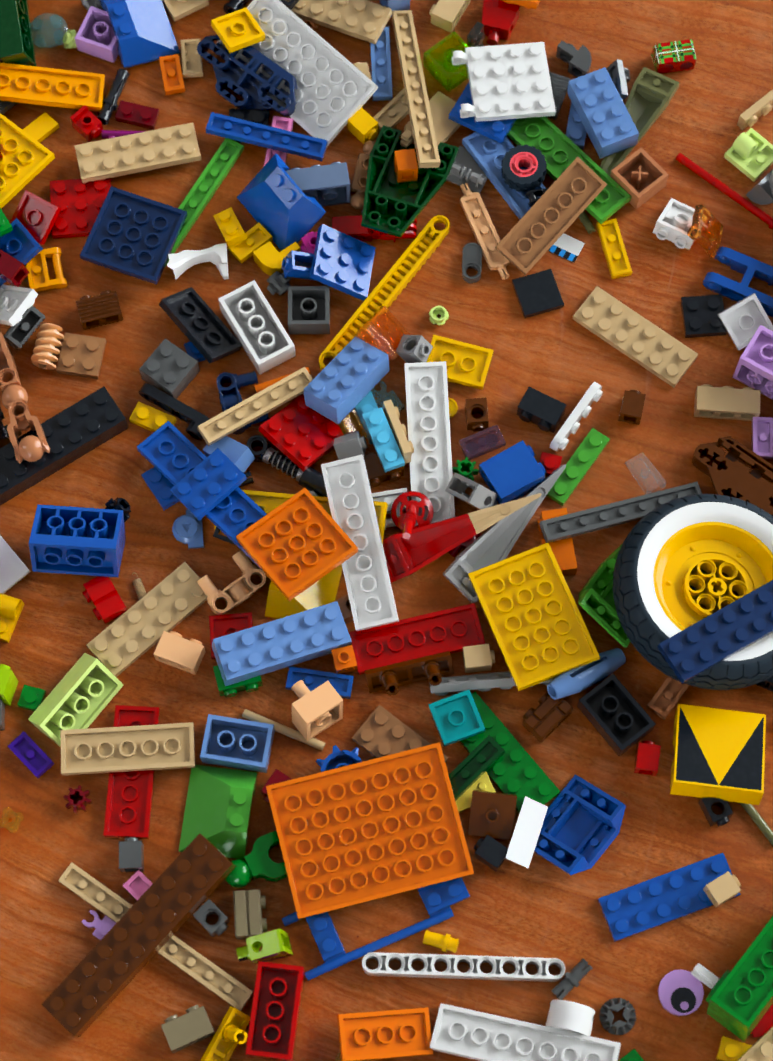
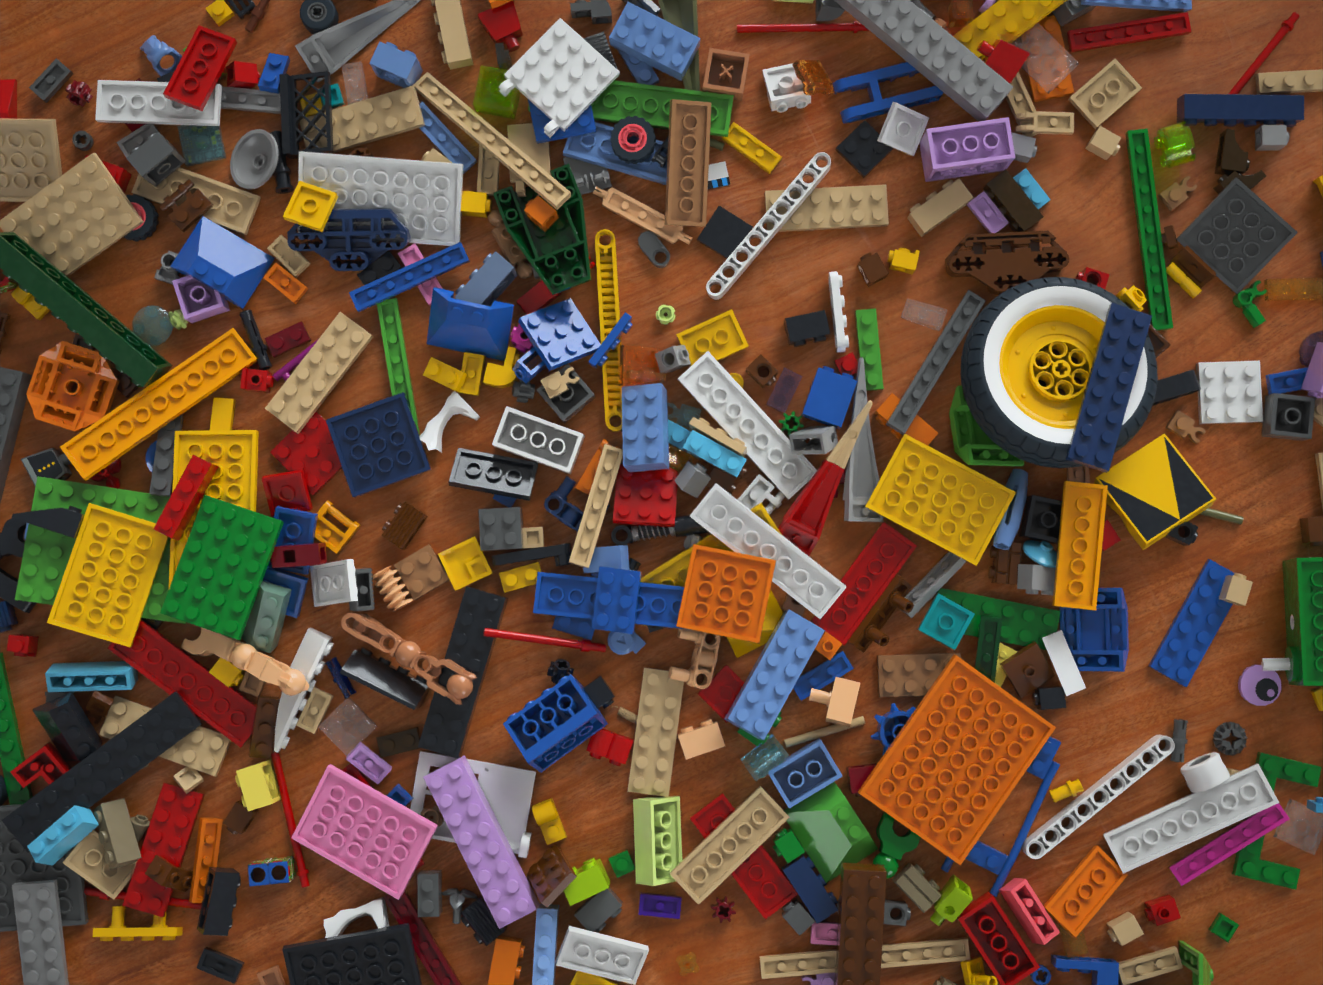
camera: 35 degrees left, 15 degrees up
(119, 373) = (465, 563): none -> yellow plate
(133, 551) = (600, 693): none -> black brick
(153, 506) = (584, 645): none -> red bar
(161, 839) = (810, 888): none -> dark blue brick
(174, 791) = (787, 845): none -> green brick
(188, 395) = (533, 537): none -> tan plate
(225, 705) = (764, 758): none -> clear light blue plate
(307, 292) = (556, 384): none -> tan plate
(323, 1010) = (1029, 911): none -> coral brick
(377, 296) = (611, 341): none -> blue plate
(408, 520) = (783, 493): red dish -> none
(478, 658) = (921, 561): tan brick -> none
(564, 747) = (1036, 578): none -> light grey brick
(583, 302) = (770, 216): none -> white beam
(583, 729) = (1041, 552): none -> medium azure dish
(617, 741) = (1080, 545): none -> light orange plate
(663, 419) = (903, 260): none -> yellow brick

